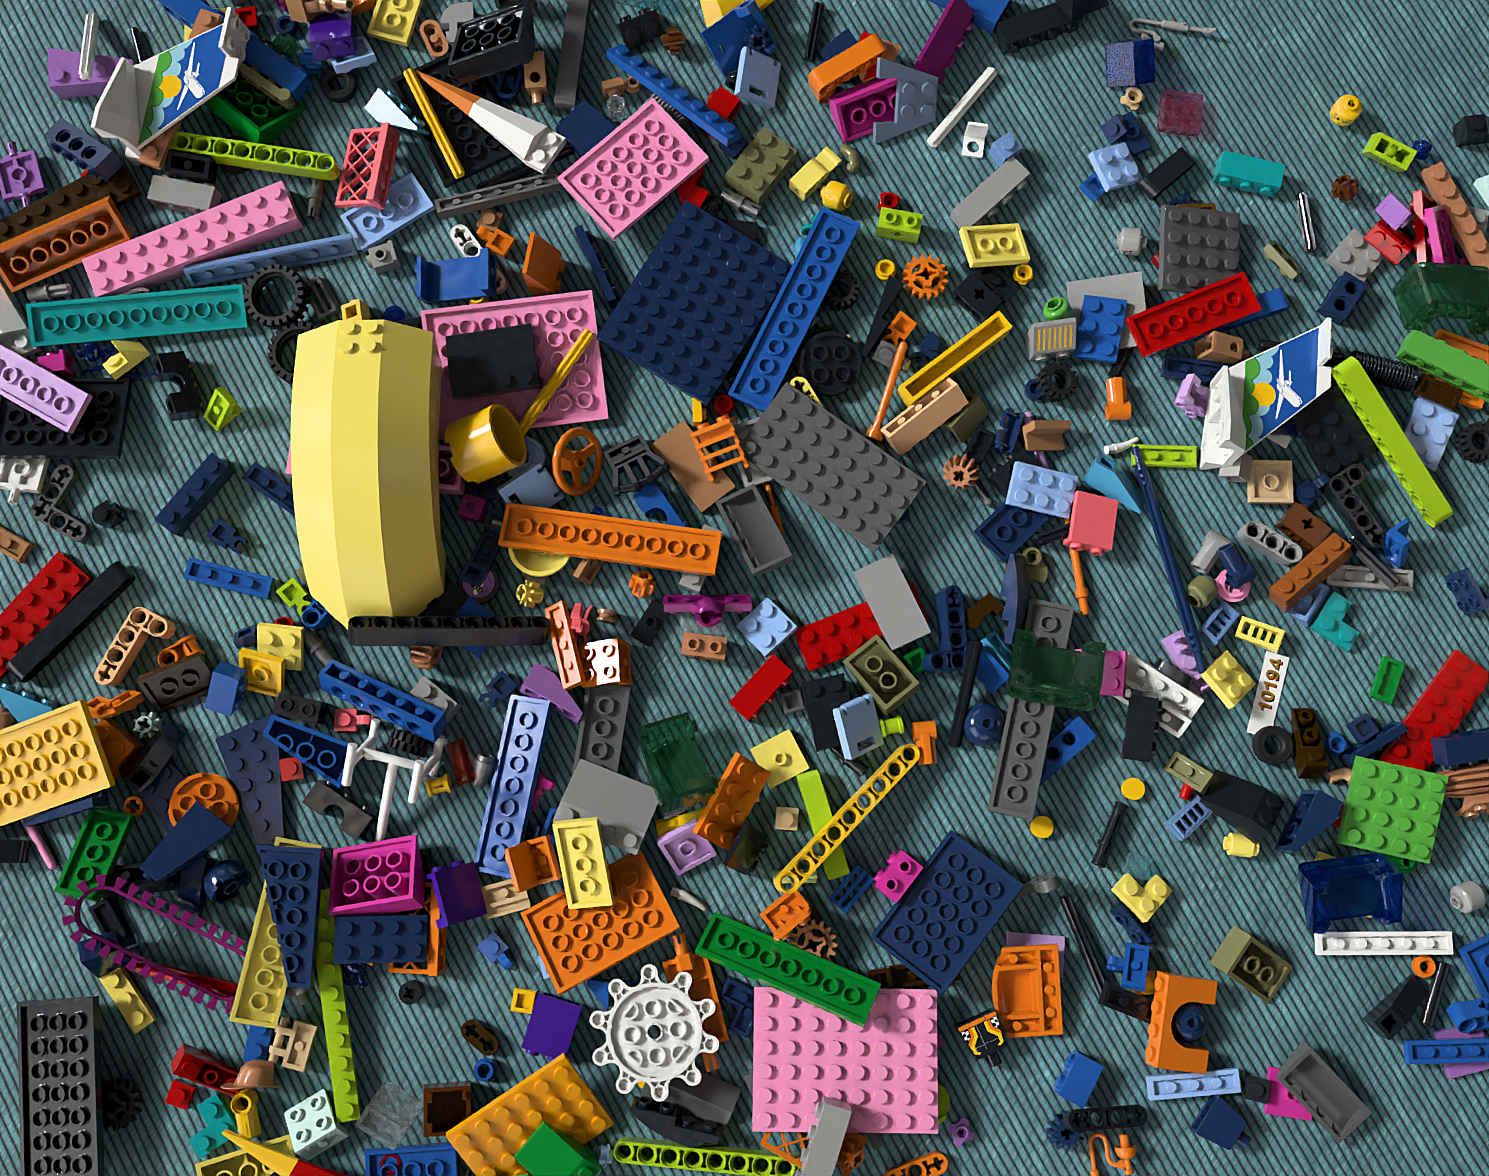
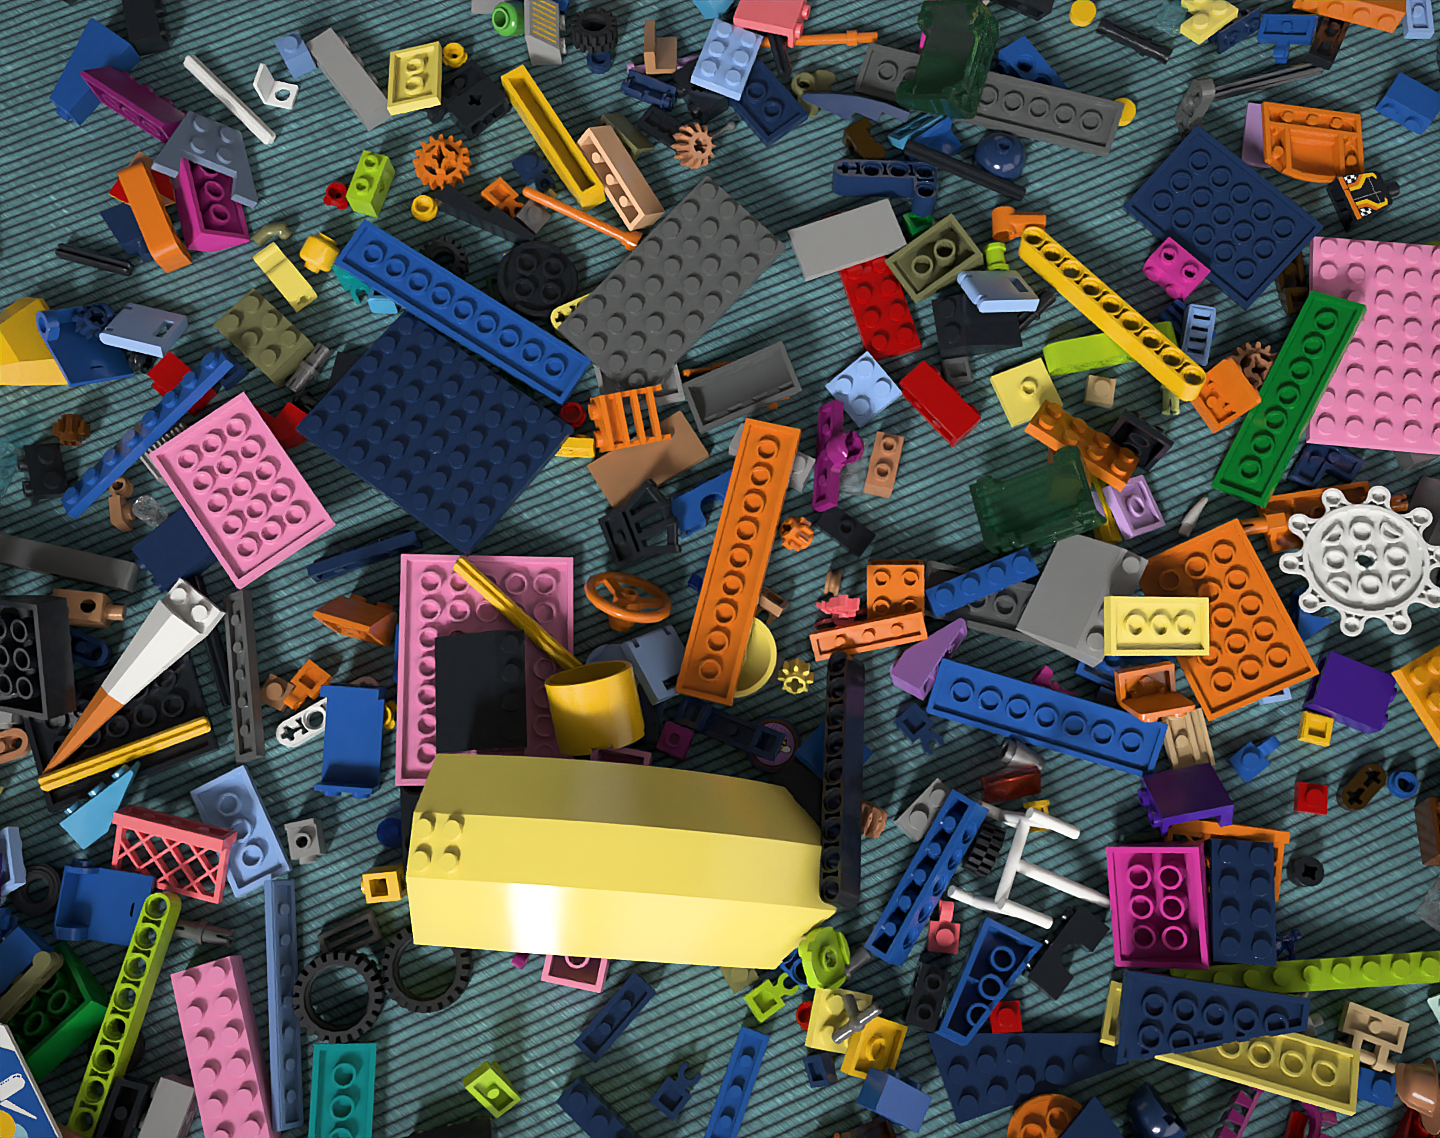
camera: 80 degrees left, 5 degrees down
(276, 654) = (857, 1019): none -> dark grey piece
(318, 619) = (822, 972): none -> lime plate
(330, 125) = (100, 903): none -> blue door
(469, 997) = (1310, 798): none -> red plate
(614, 729) = (981, 582): none -> blue plate
(858, 894) = (1199, 317): none -> medium blue slope

